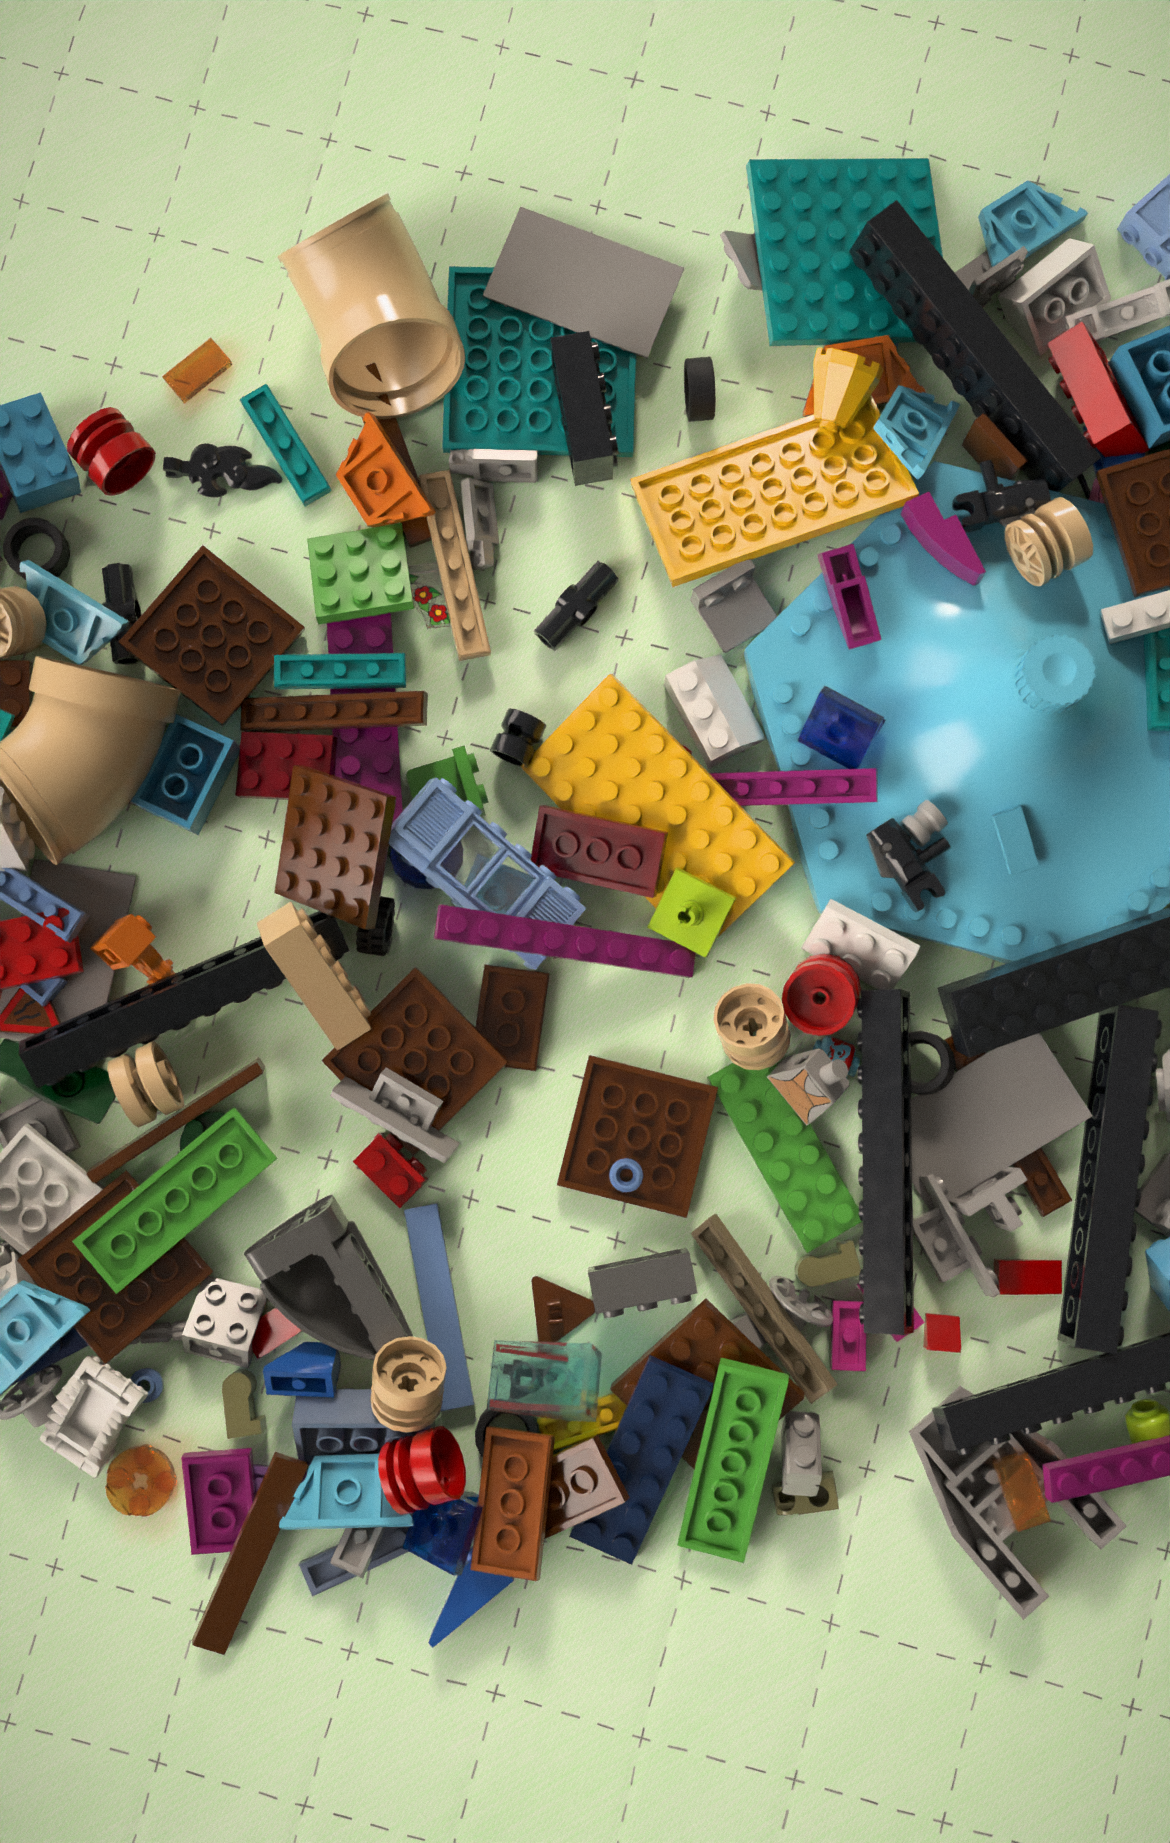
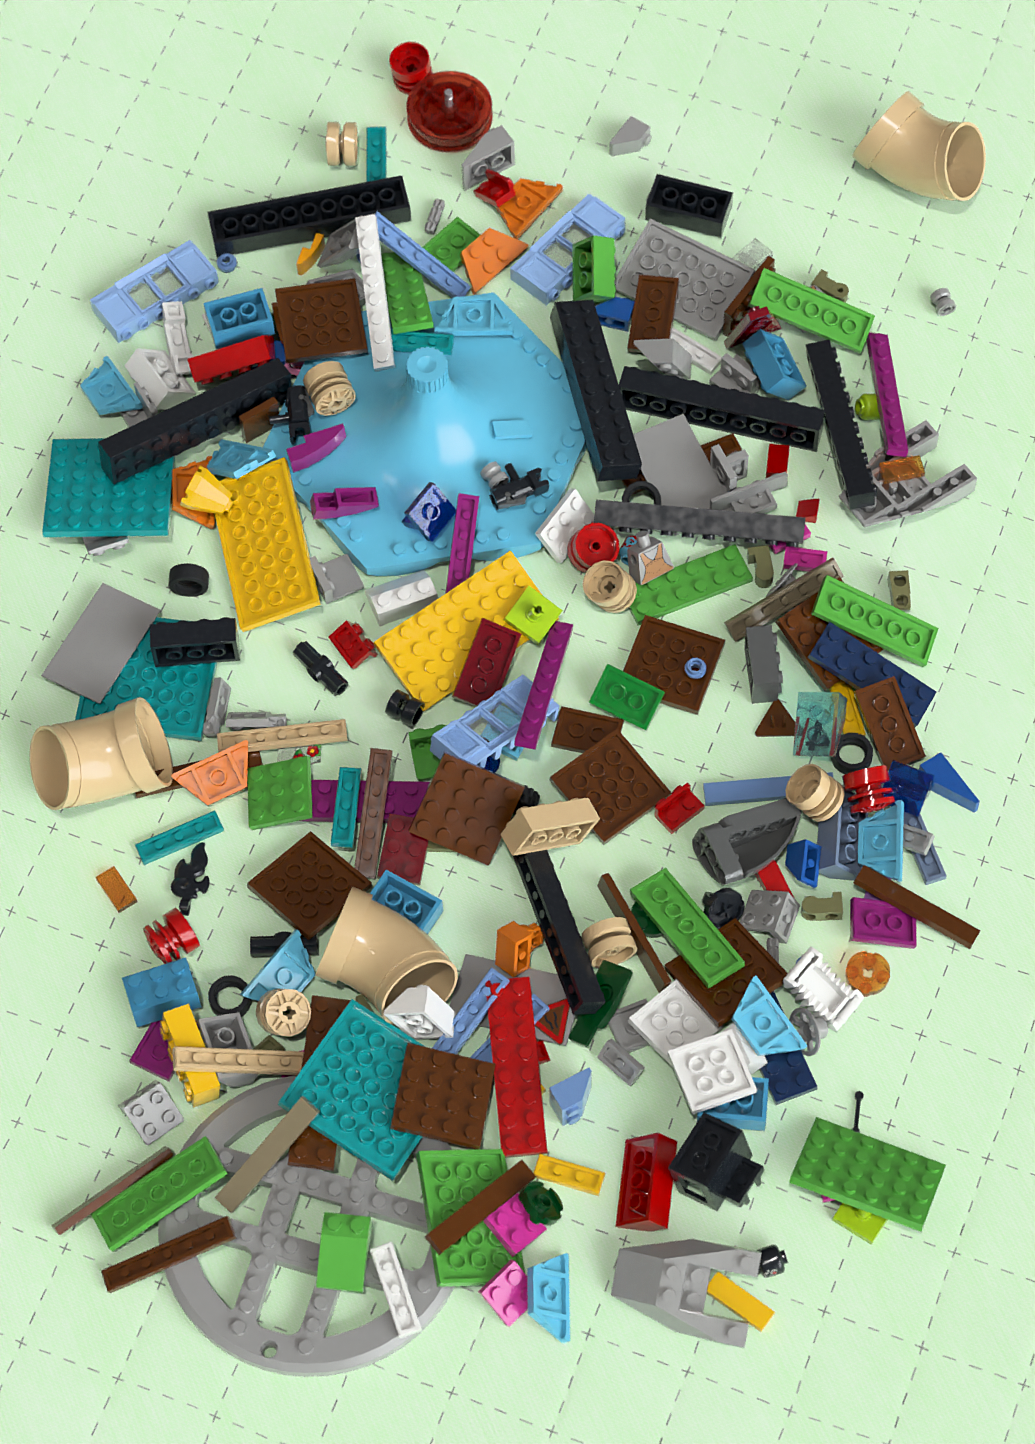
camera: 85 degrees left, 20 degrees down
(222, 1250) = (723, 906): none -> black tile
(400, 1109) = (640, 789): light grey bracket -> none
(513, 1503) = (887, 741): dark orange tile -> none
(567, 1072) = (627, 697): none -> green plate
(623, 647) = (352, 643): none -> red bracket
(801, 1453) = (878, 583): light grey brick -> none

